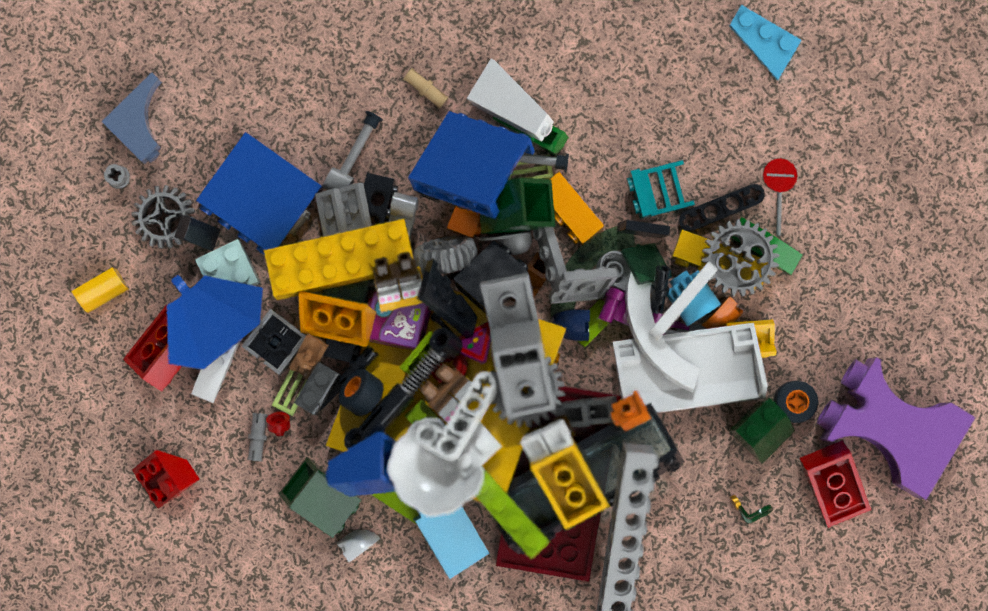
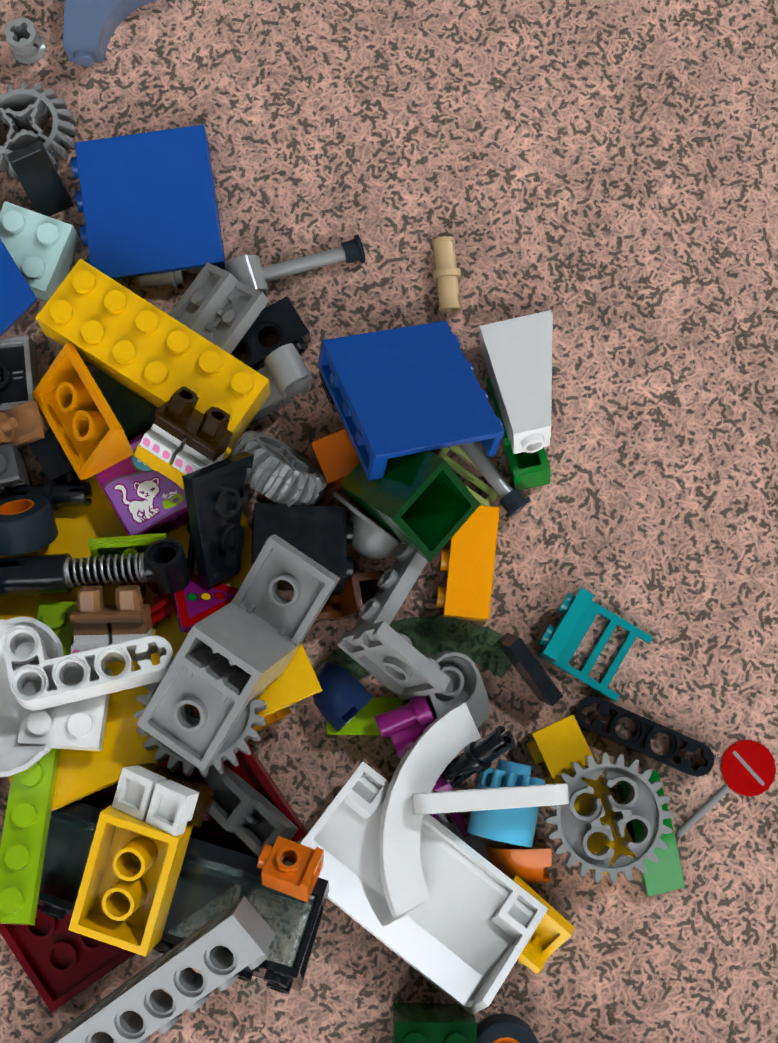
camera: 45 degrees right, 5 degrees down
(643, 262) = (491, 705): clear green piece -> none

